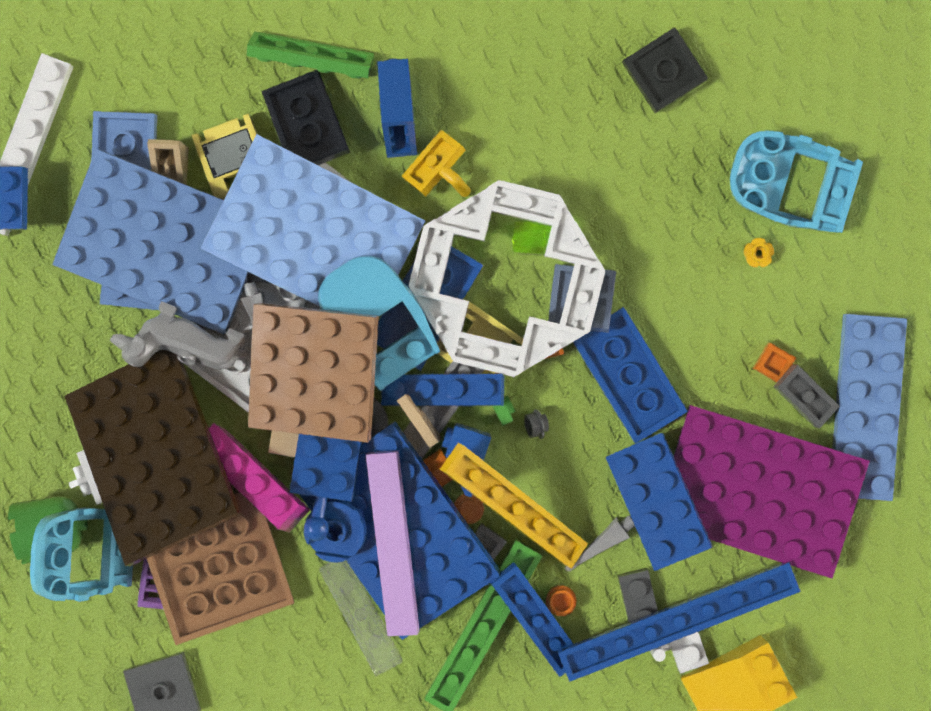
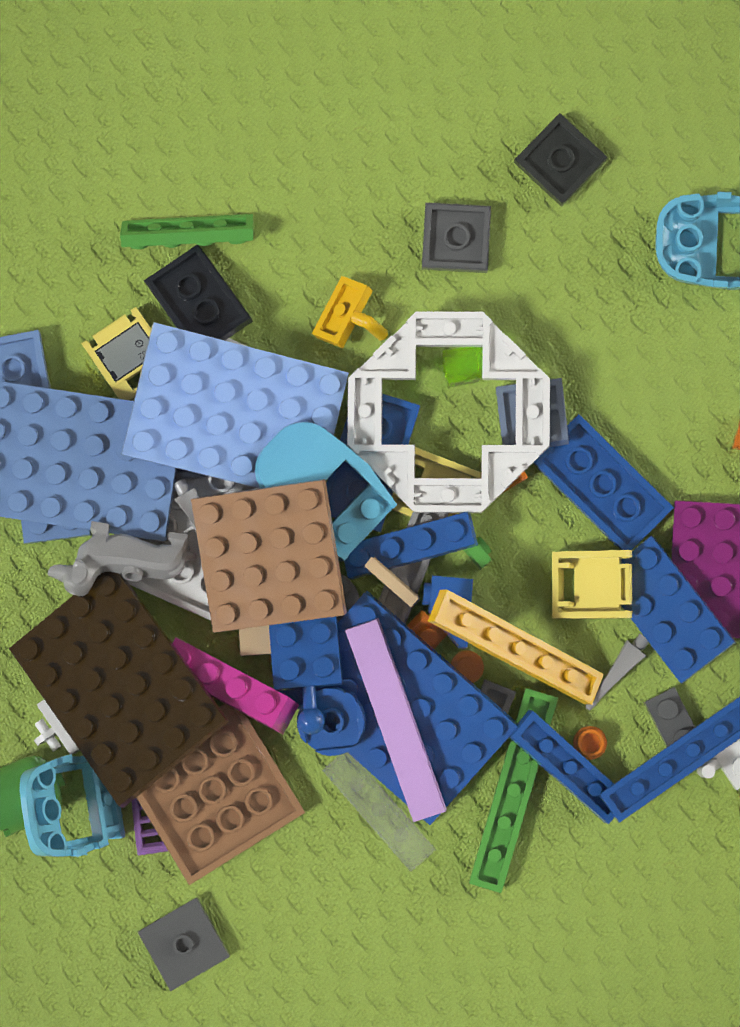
camera: 15 degrees left, 5 degrees down
(169, 158) = (63, 371): tan slope -> none
(397, 108) = (291, 264): blue slope -> none
(536, 424) = (517, 560): dark grey plate -> none
(553, 119) = (456, 237): none -> dark grey plate
(604, 463) = (599, 584): none -> light yellow container
(751, 255) = (706, 333): yellow plate -> none

